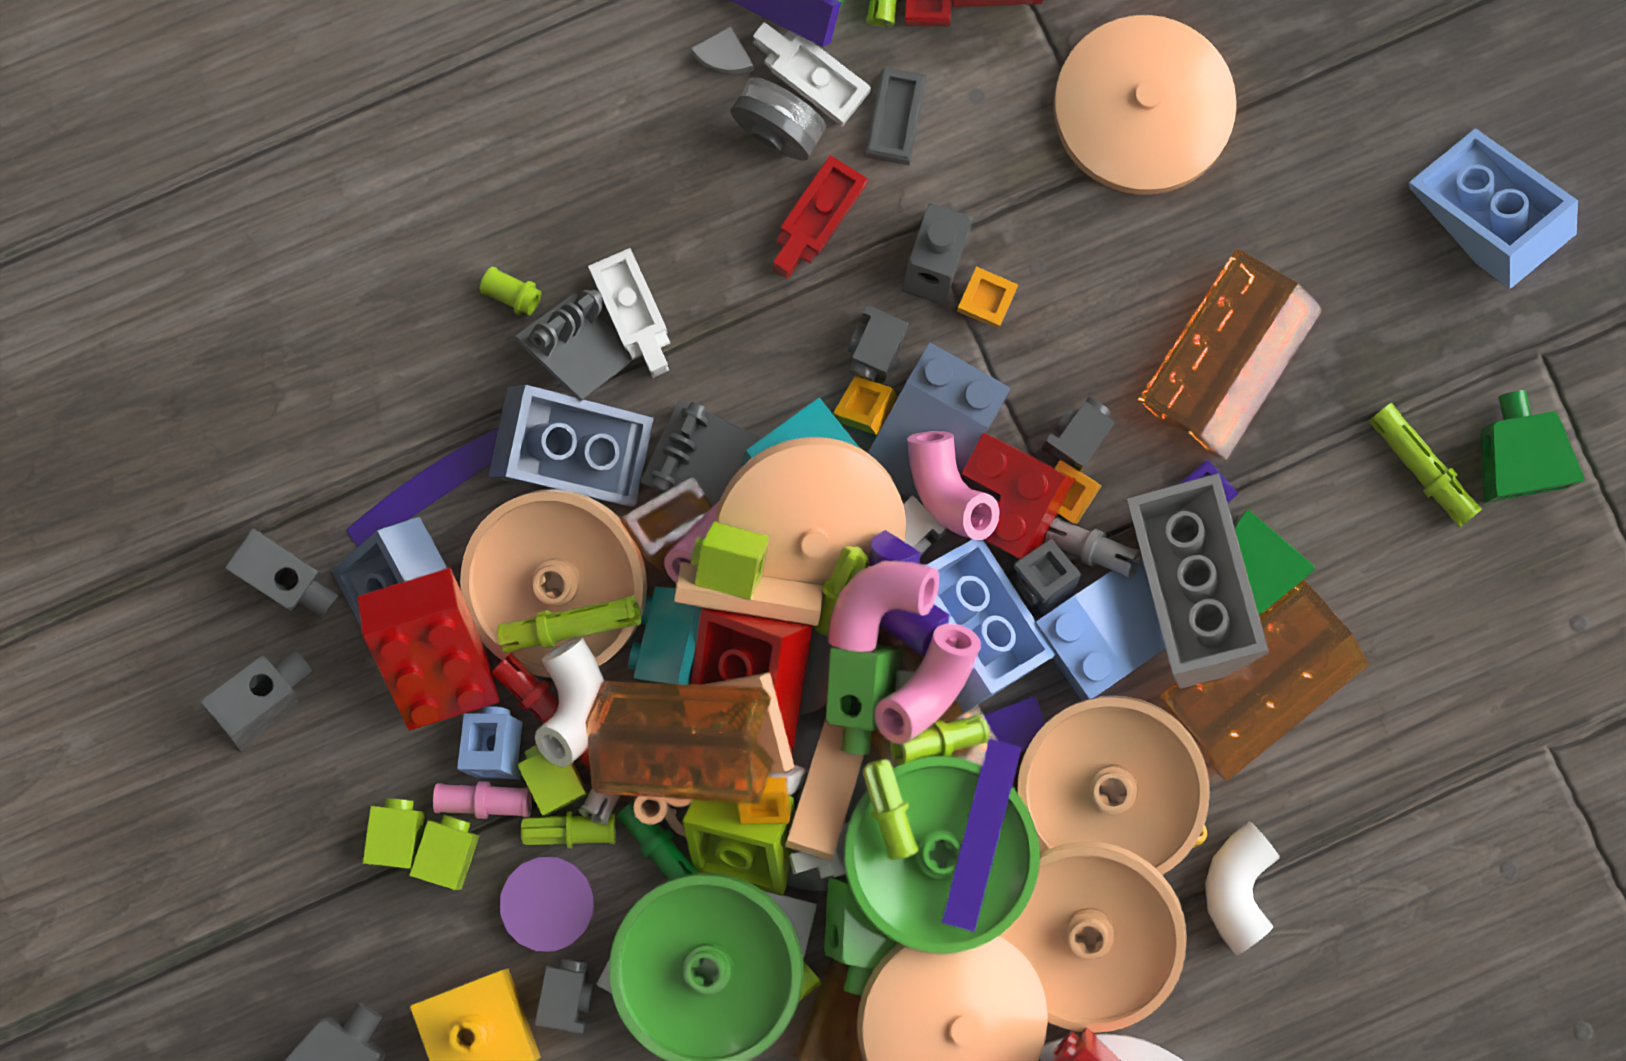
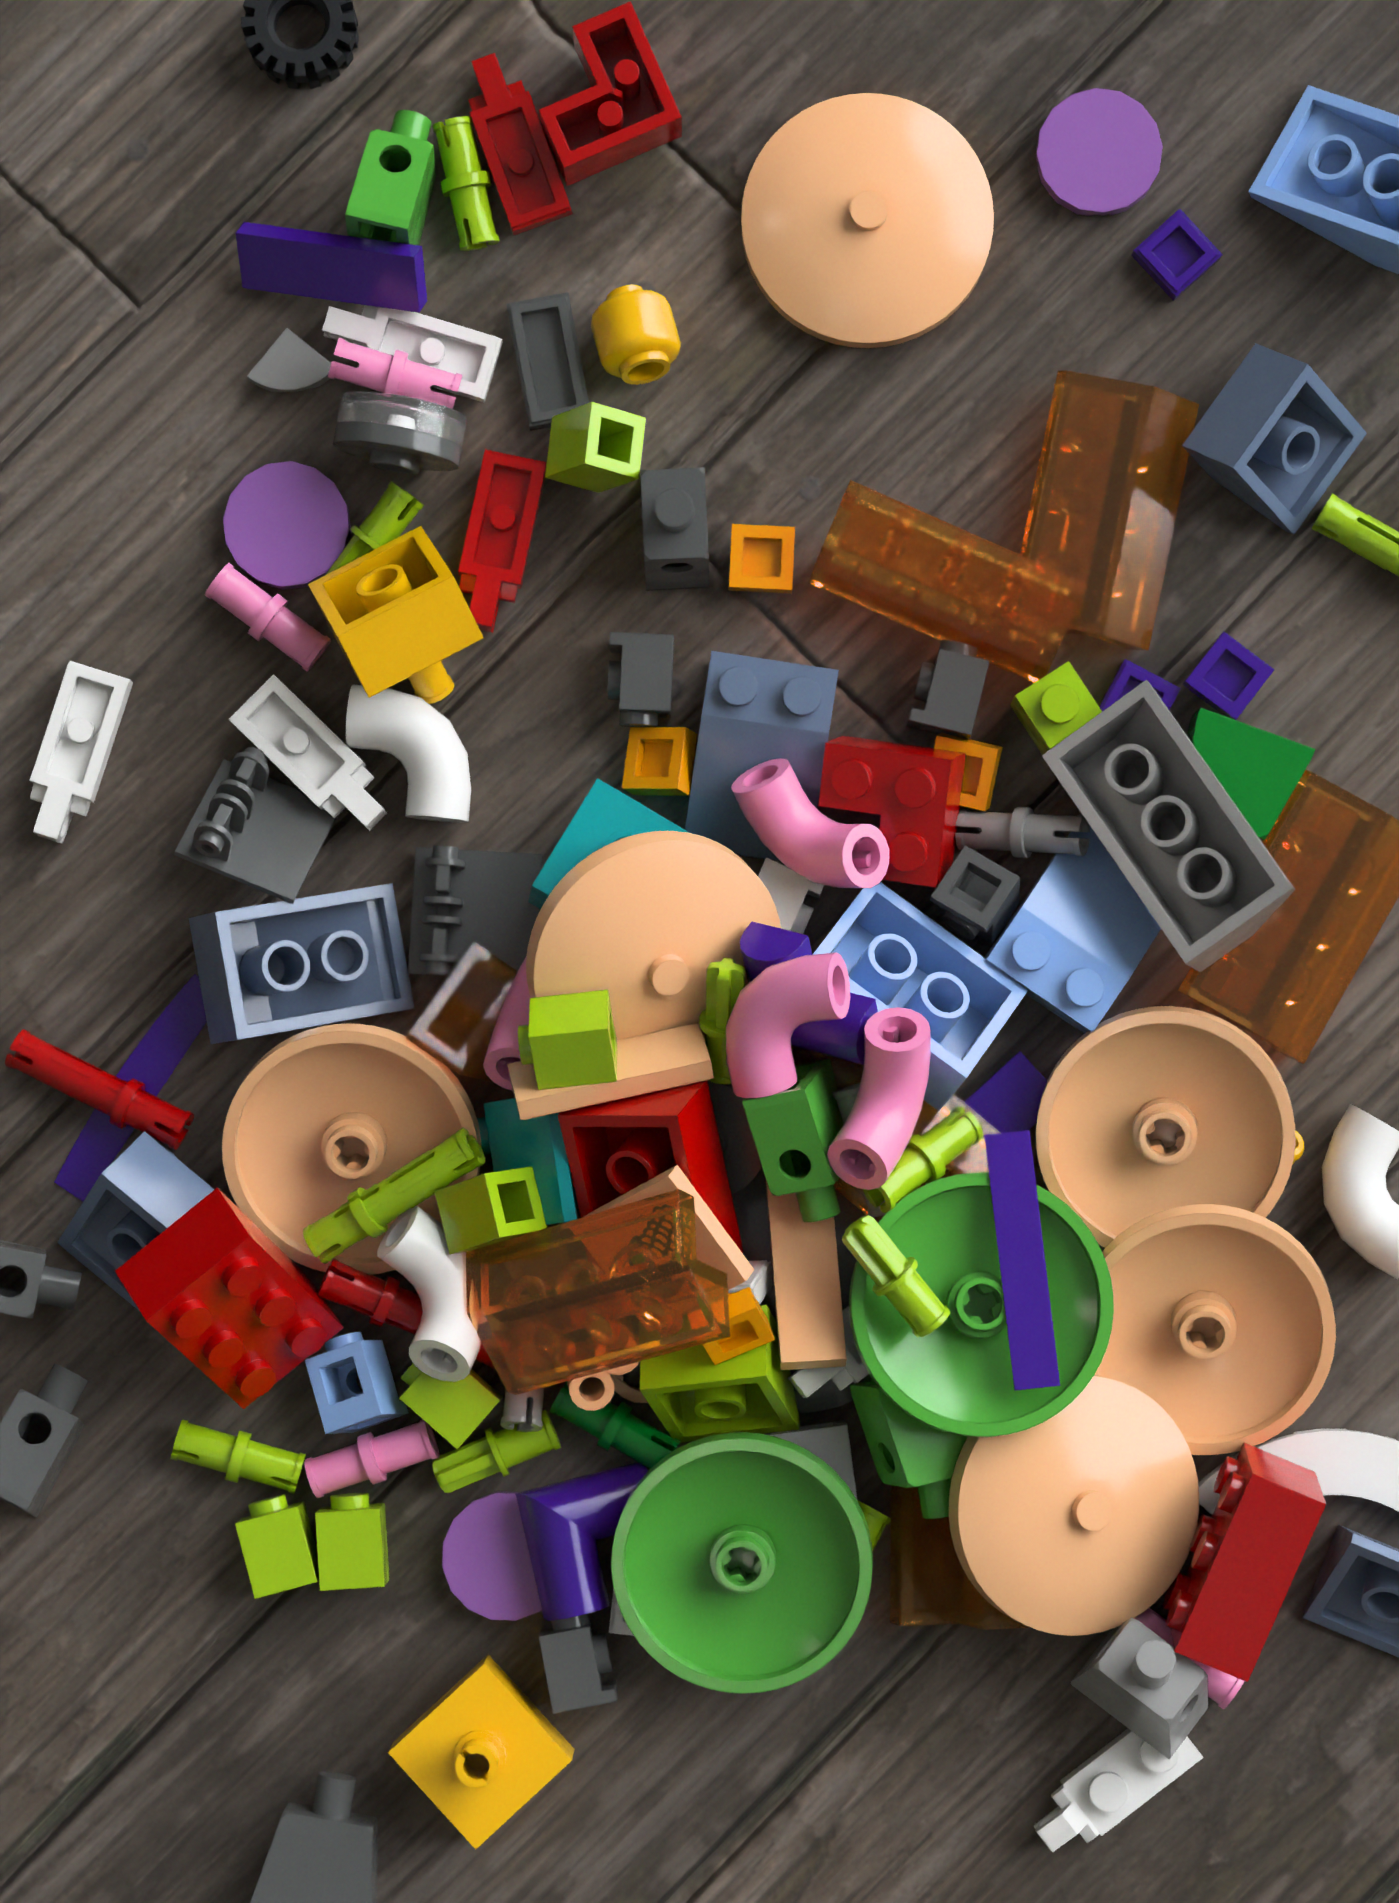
camera: 20 degrees left, 5 degrees up
(392, 762) = (238, 1456): none -> lime pin
(413, 492) = (121, 1100): none -> red pin
(479, 245) = (76, 746): none -> white hinge
(510, 291) = (141, 790): lime pin -> none
(590, 902) = (562, 1534): none -> dark purple brick
(630, 656) = (490, 1209): none -> lime brick
(641, 209) = (267, 617): none -> bright pink pin
(678, 155) = (286, 524): none -> medium lavender tile
(711, 334) = (422, 742): none -> white cylinder
(728, 239) = (398, 616): none -> yellow brick
(730, 187) = (382, 525): none -> lime axle
(788, 77) = (393, 374): none -> bright pink pin
(904, 180) = (595, 447): none -> lime brick
(960, 118) = (635, 334): none -> yellow head
(1106, 358) = (946, 582): none -> clear orange slope
(1147, 469) = (1055, 707): none -> lime brick
(1274, 497) = (1228, 676): none -> dark purple plate
(1317, 119) = (1098, 152): none -> medium lavender tile
(1344, 205) = (1176, 254): none -> dark purple tile
(1367, 349) = (1275, 437): none -> sand blue slope

